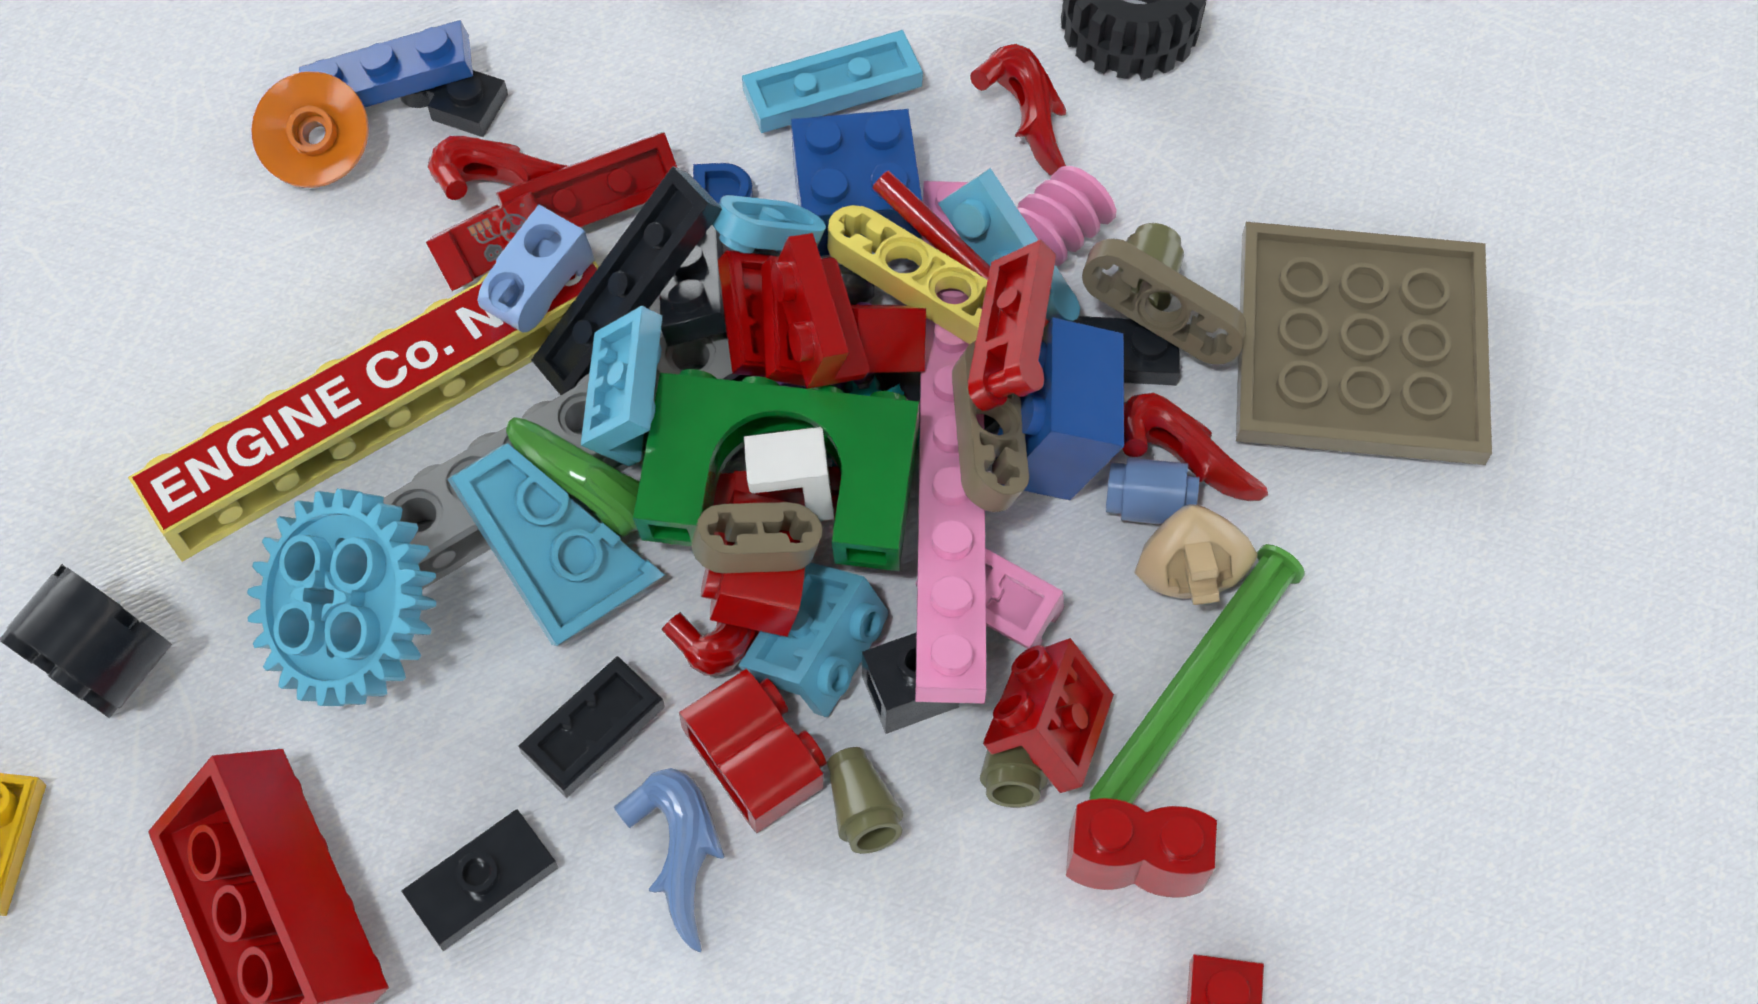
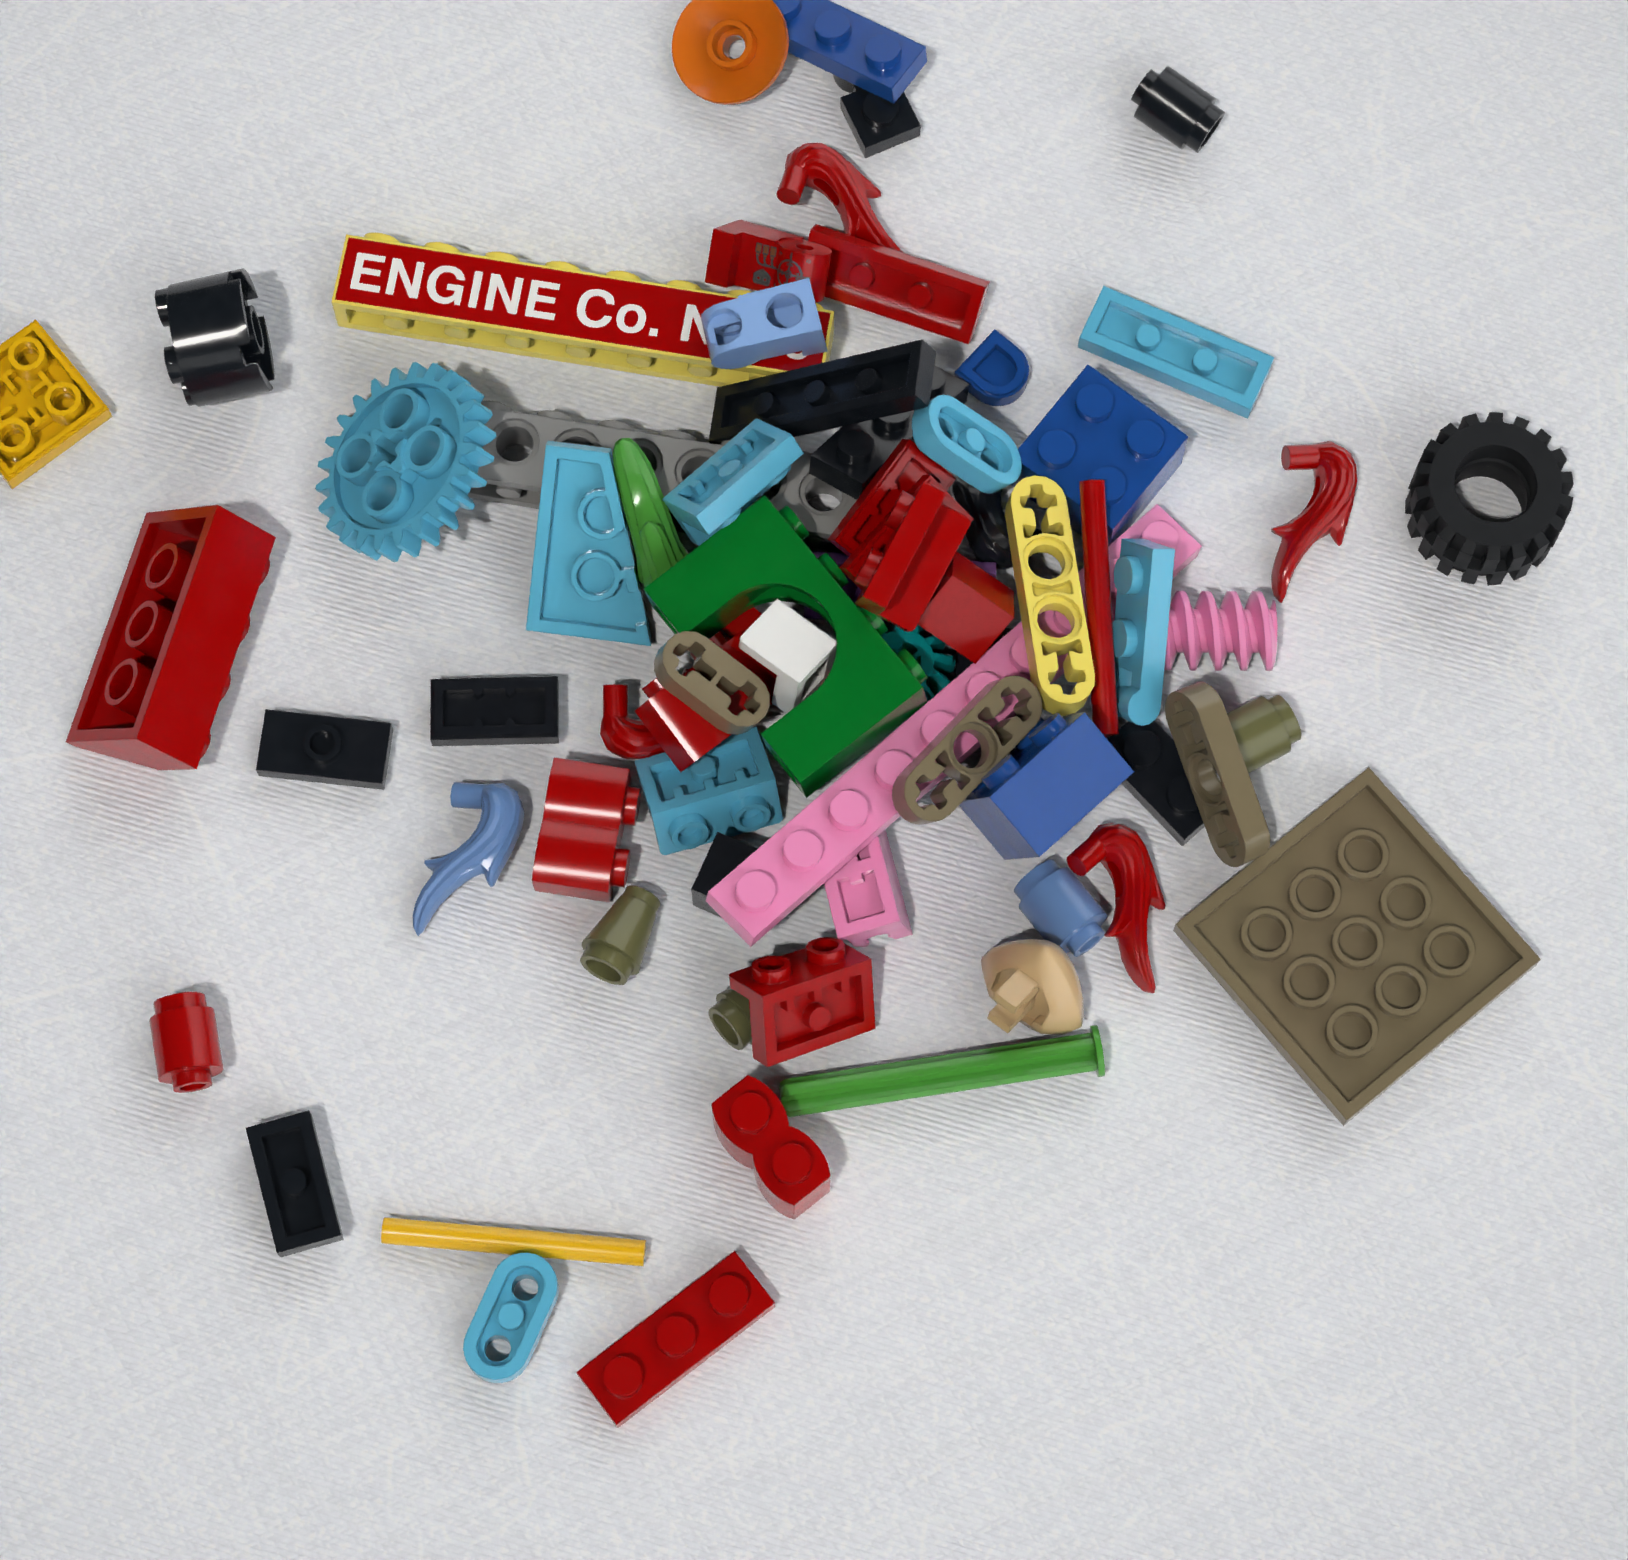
camera: 45 degrees right, 10 degrees up
(1012, 327) = (1048, 691): red plate -> none

